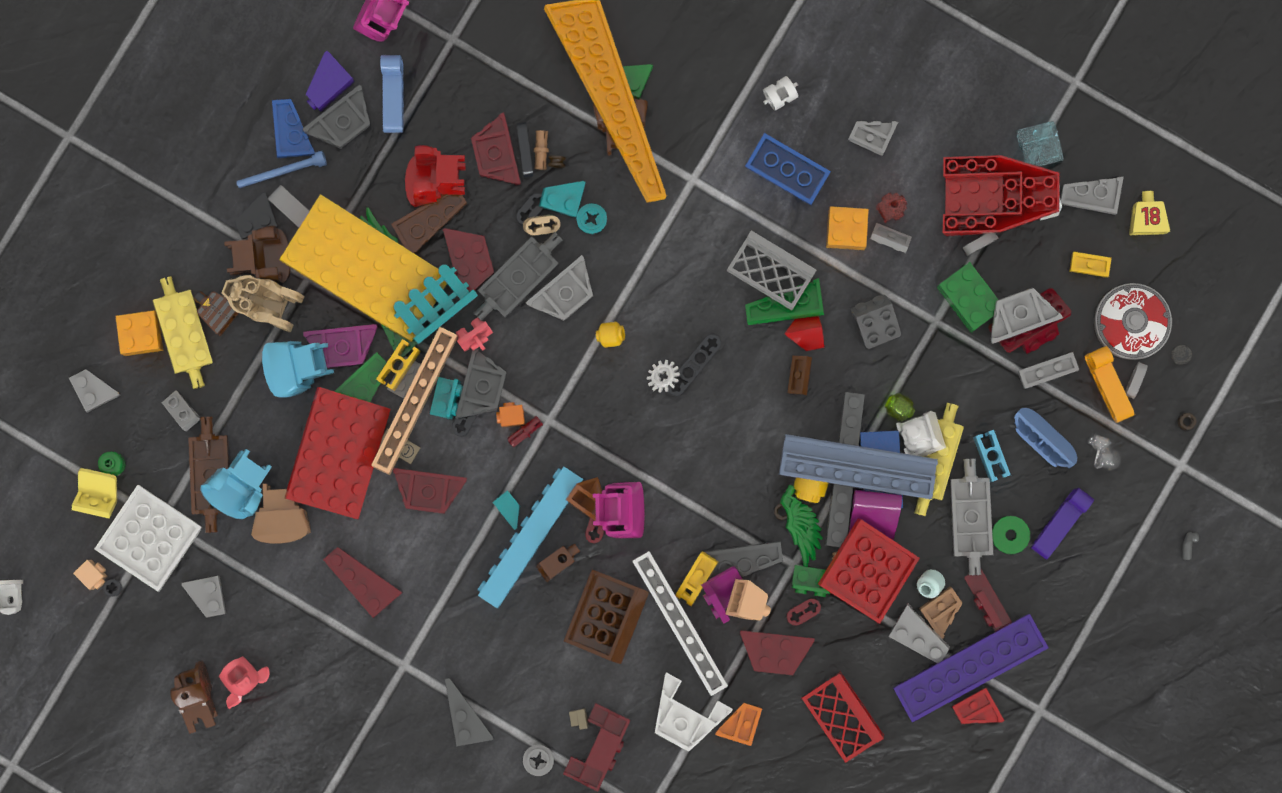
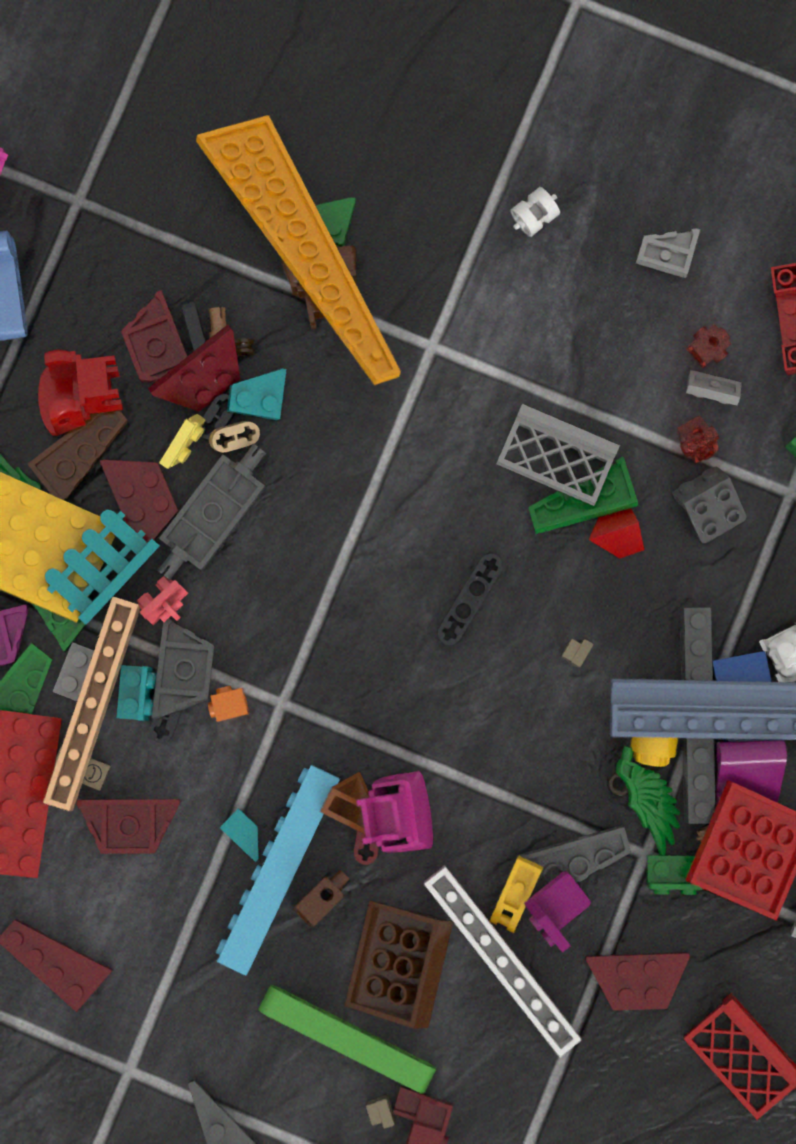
camera: 10 degrees left, 0 degrees up
(400, 374) = (52, 658): yellow piece -> none
(500, 230) = (178, 449): none -> light yellow plate
(524, 177) = (202, 373): none -> dark red wing
(525, 431) = (250, 723): dark red axle -> none
(562, 664) = (347, 1039): none -> bright green beam
(565, 292) = (279, 524): light grey wing -> none
(592, 209) = (301, 406): teal gear -> none
(610, 334) = (350, 573): yellow head -> none
(661, 369) = (425, 612): white gear -> none
(681, 723) = (522, 1097): white wing -> none
(741, 724) = (606, 1087): orange wing -> none
(748, 601) = (591, 917): light nougat torso -> none
(764, 413) = (576, 652): none -> dark tan piece
(787, 169) = (560, 313): blue brick -> none
(799, 375) = (616, 593): reddish brown plate -> none
(801, 607) = (672, 924): dark red beam -> none
(847, 228) = (652, 382): light orange brick -> none
(873, 273) = (698, 439): none -> clear red brick
(899, 407) = (759, 617): clear neon green head -> none

